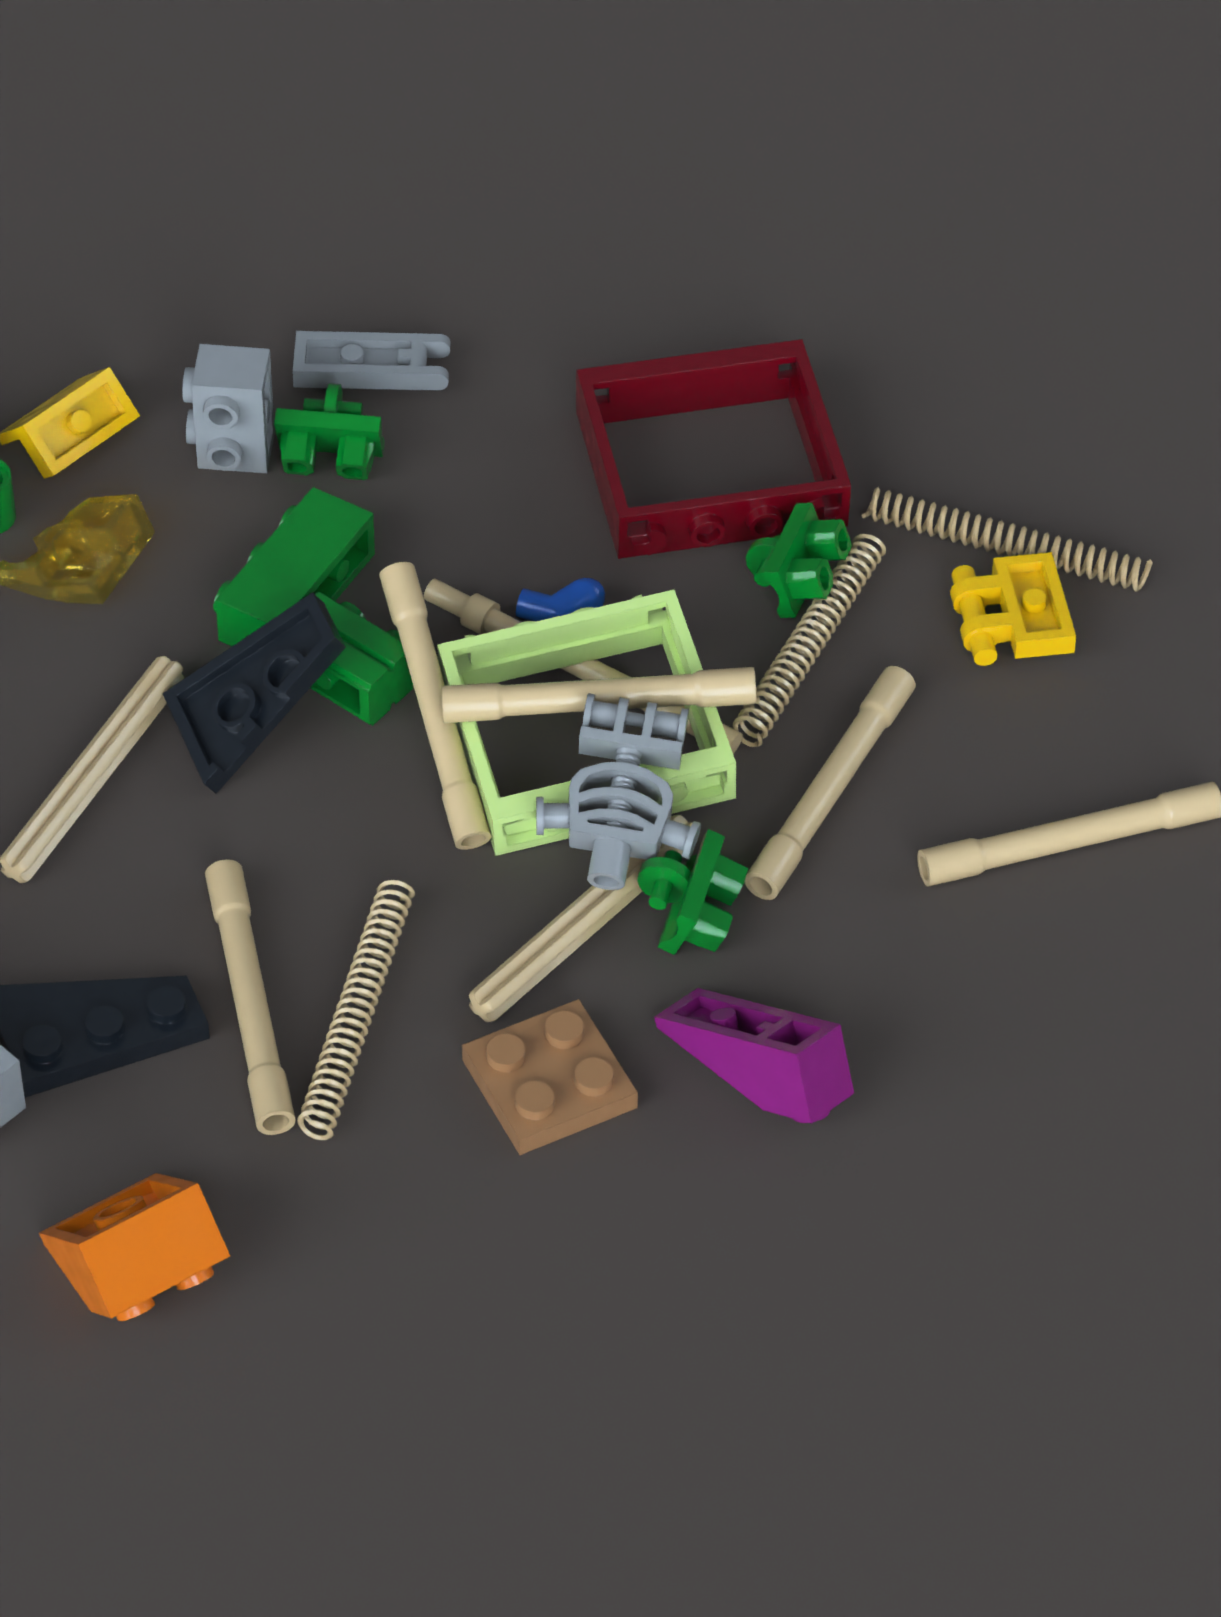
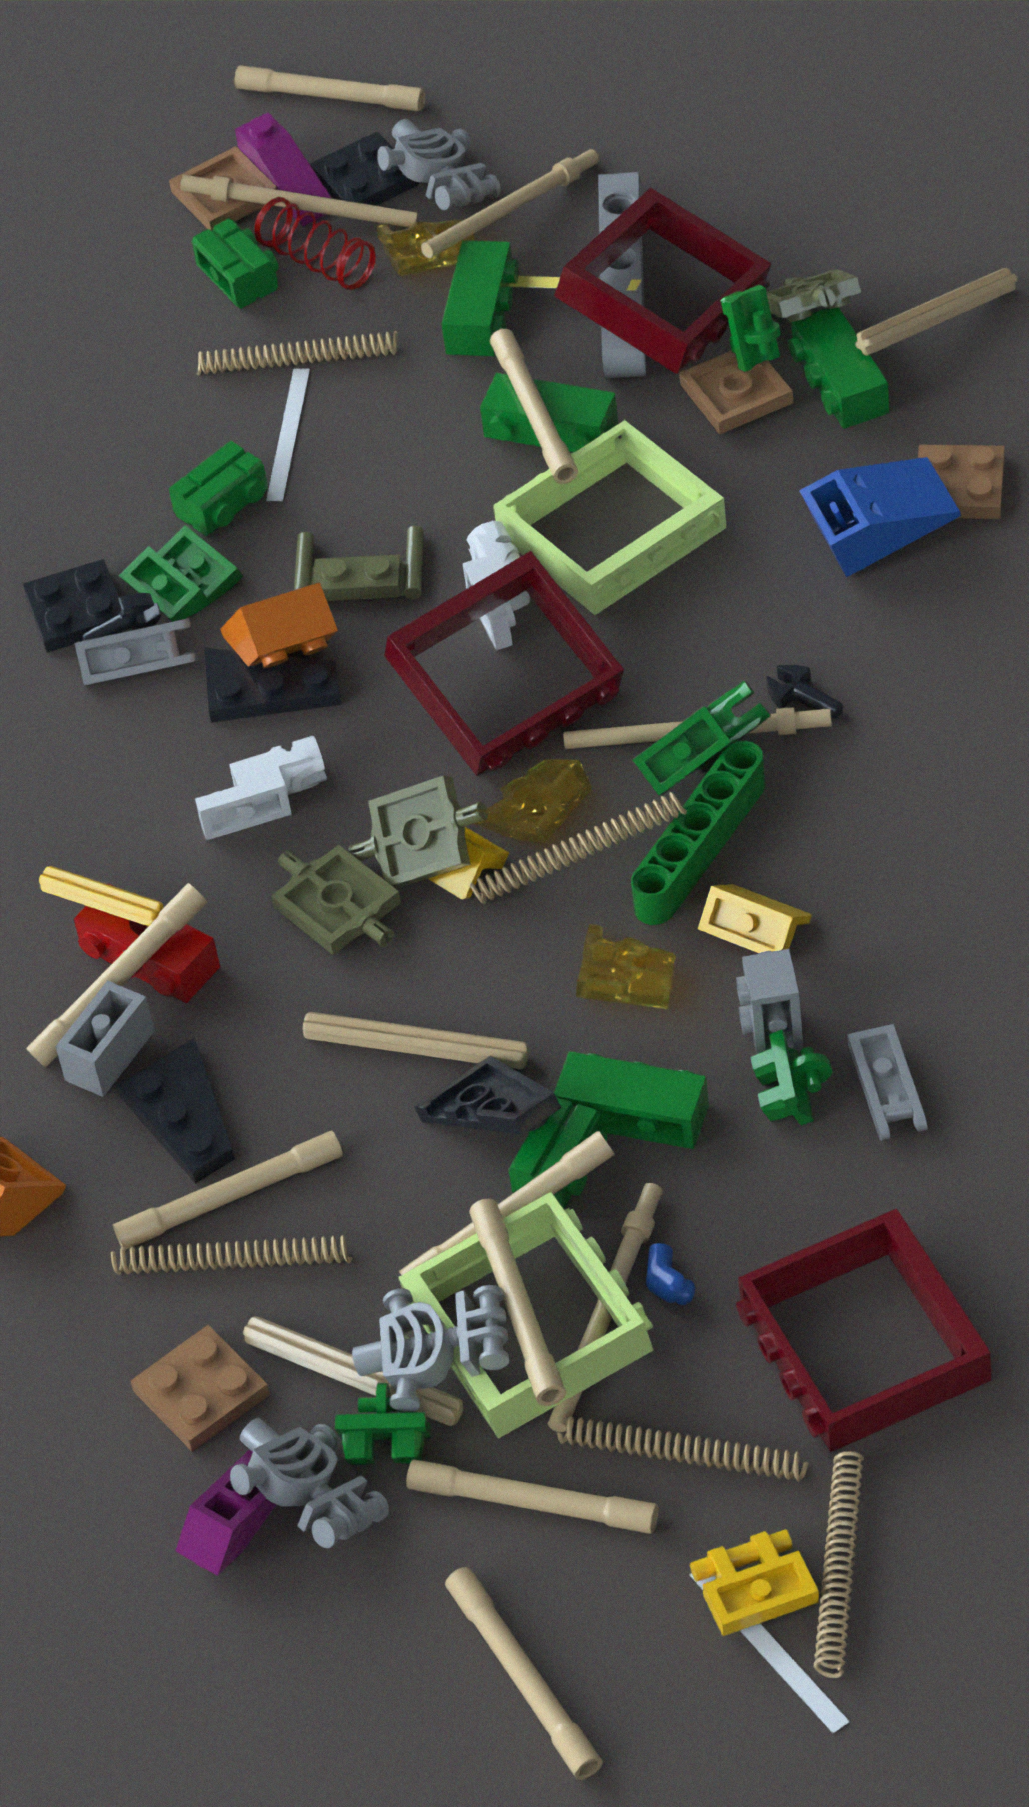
camera: 85 degrees right, 0 degrees up
(748, 976) = (284, 1475): none -> light grey piece
(799, 558) = (750, 1415): green hips -> none
(1114, 619) = (792, 1673): none -> white sticker

